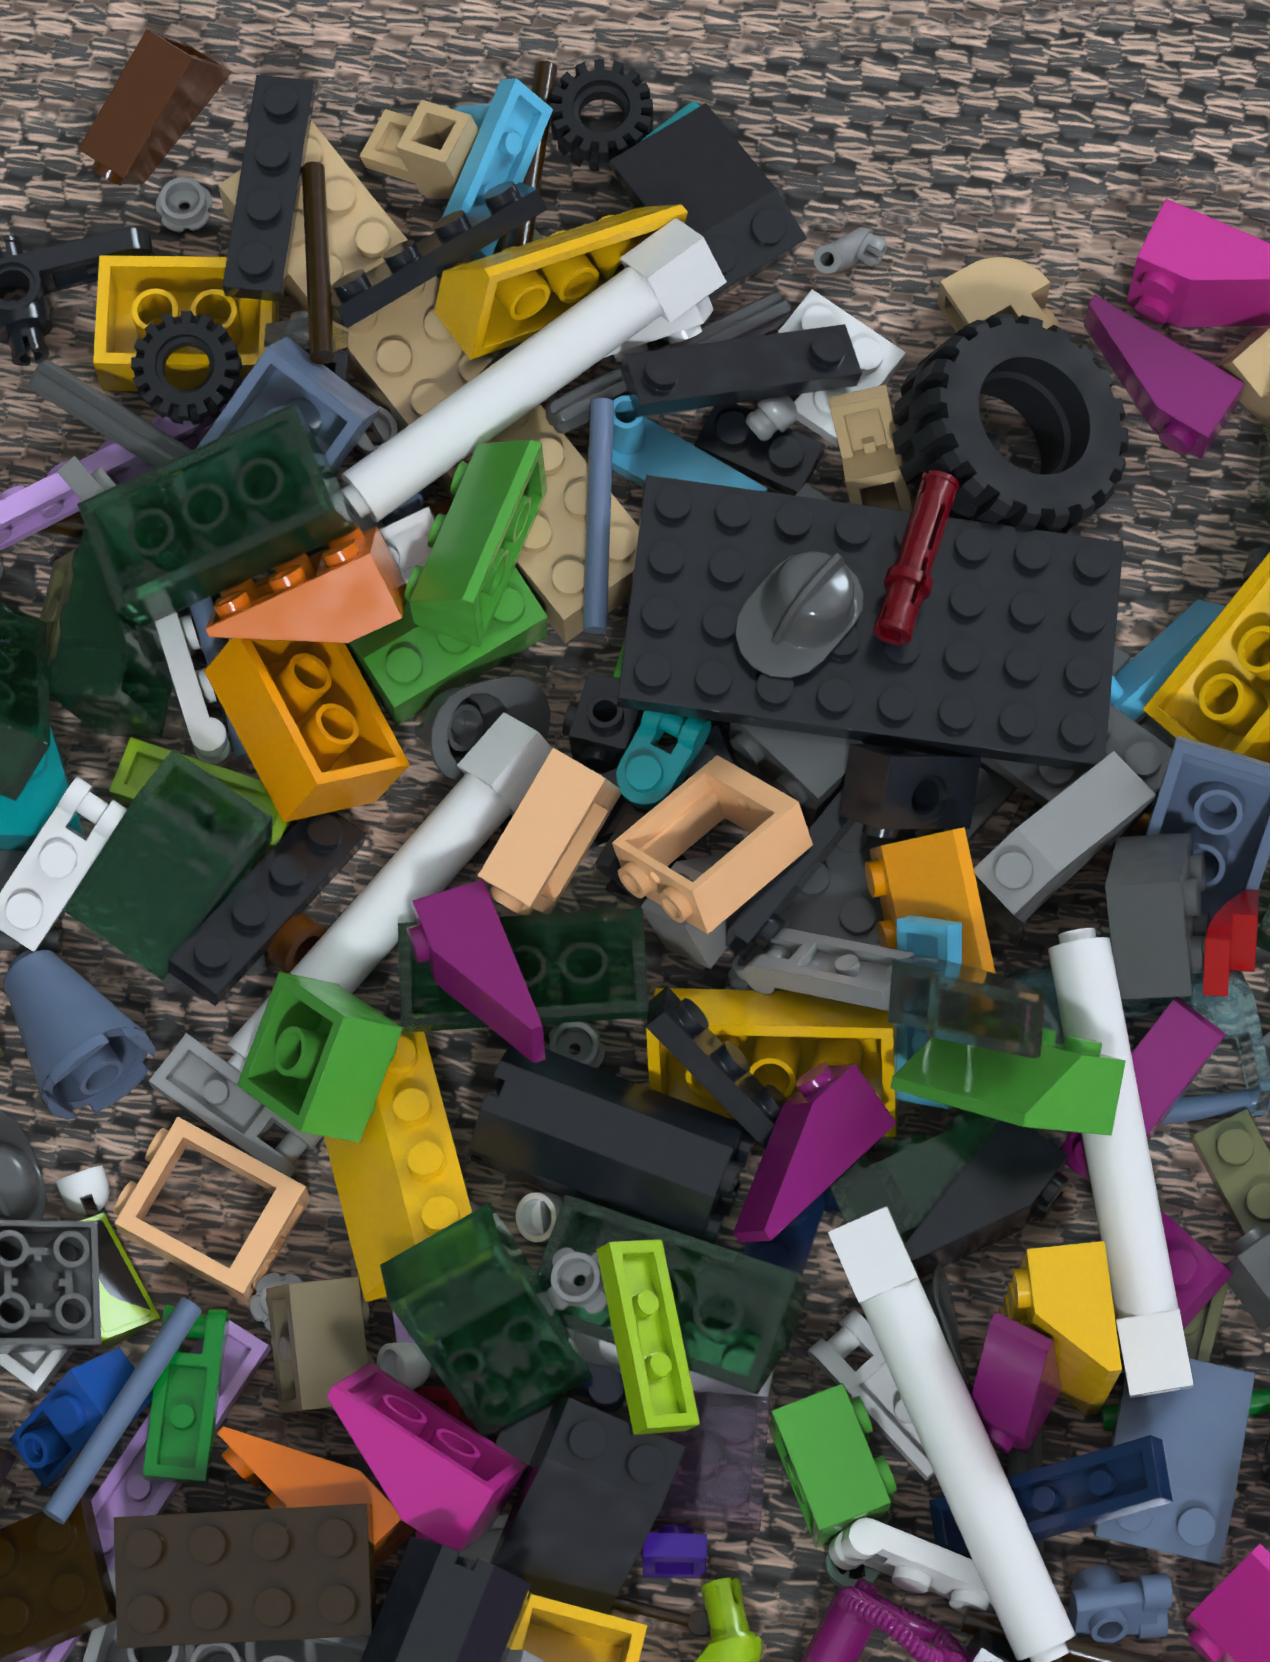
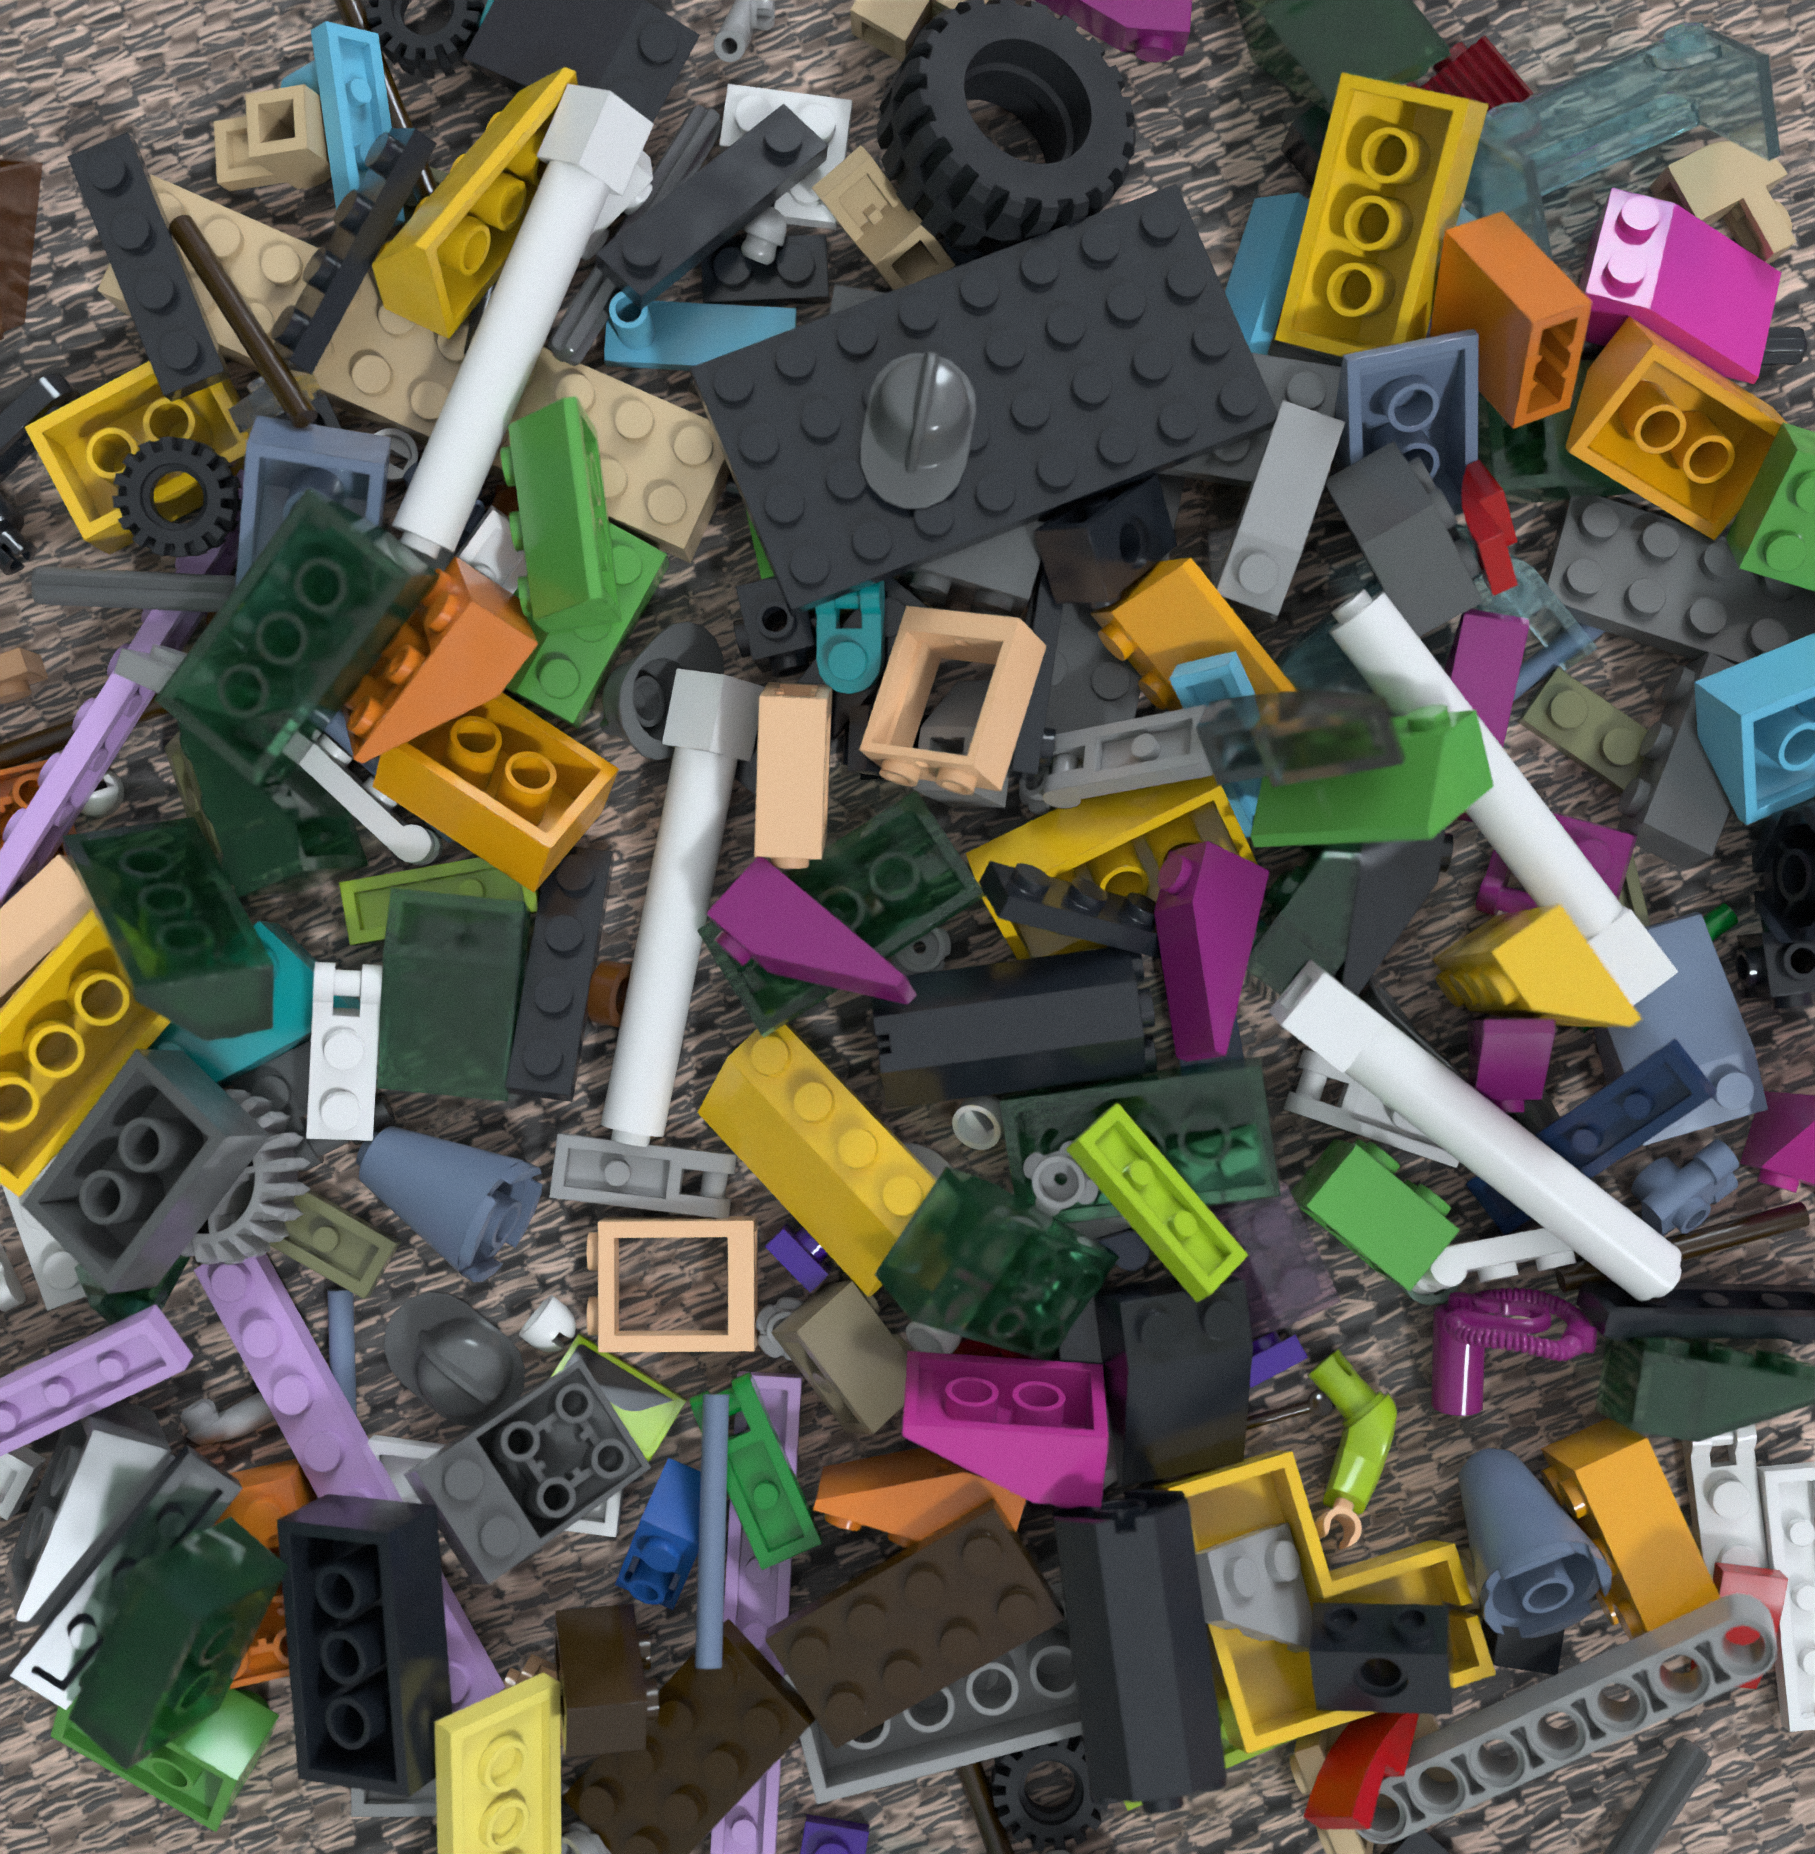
camera: 30 degrees left, 15 degrees up
(183, 191) = (60, 322): light grey plate -> none
(319, 1057) = (701, 1102): bright green brick -> none
(328, 1242) = (800, 1255): none -> dark purple plate
(598, 516) = (660, 428): sand blue bar -> none
(910, 579) = (1005, 336): dark red pin -> none

